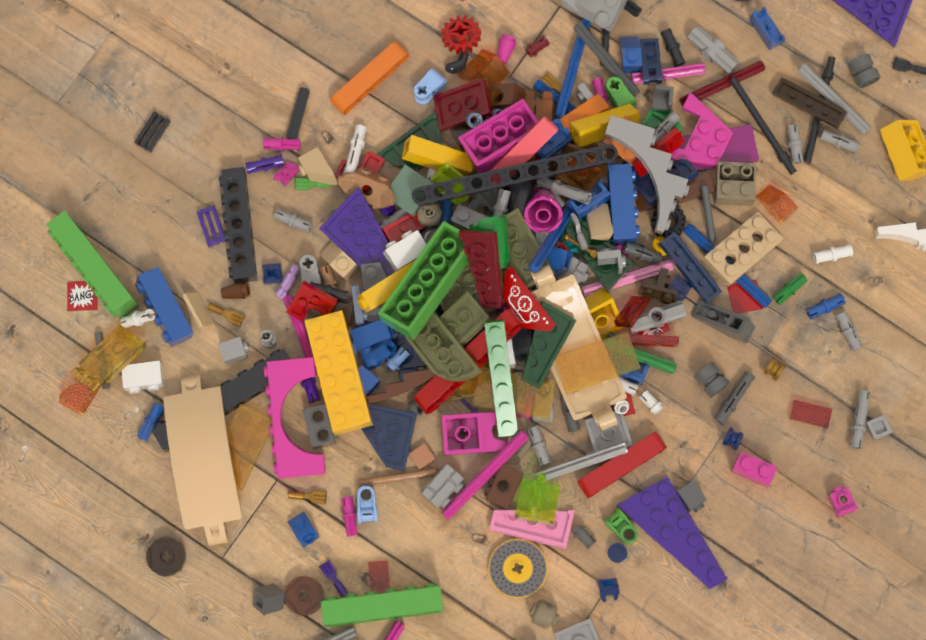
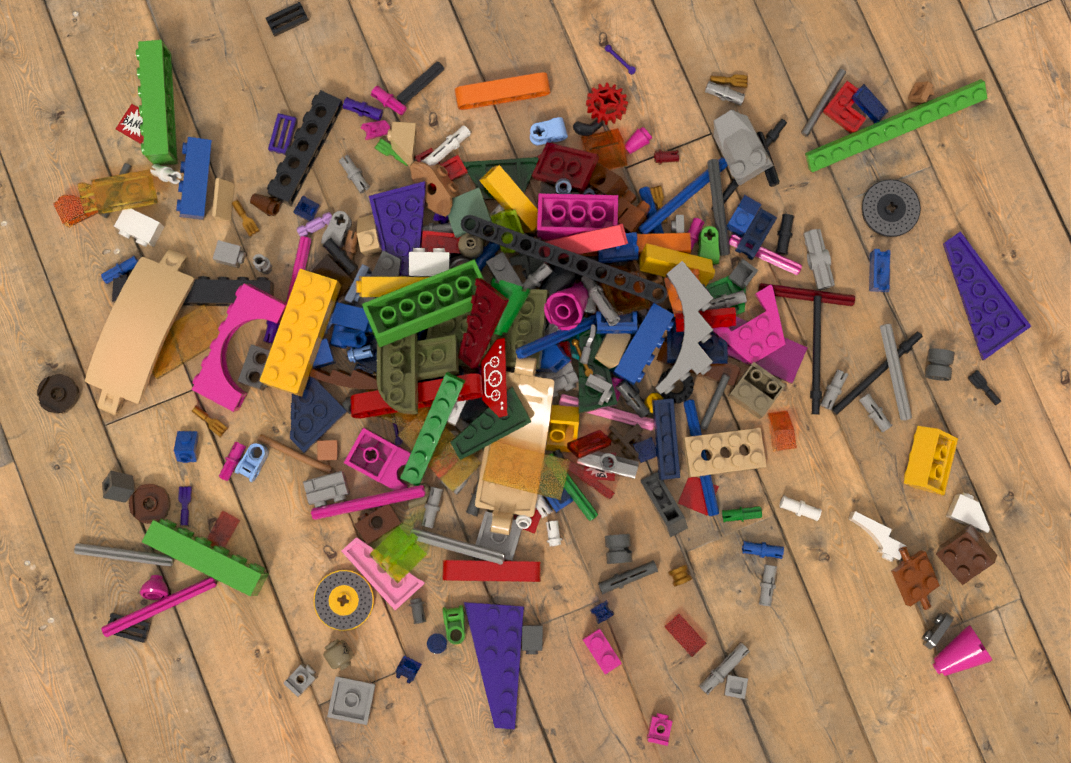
camera: 30 degrees right, 5 degrees up
(310, 297) = (319, 251): red plate -> none
(809, 103) = (871, 362): dark brown plate -> none

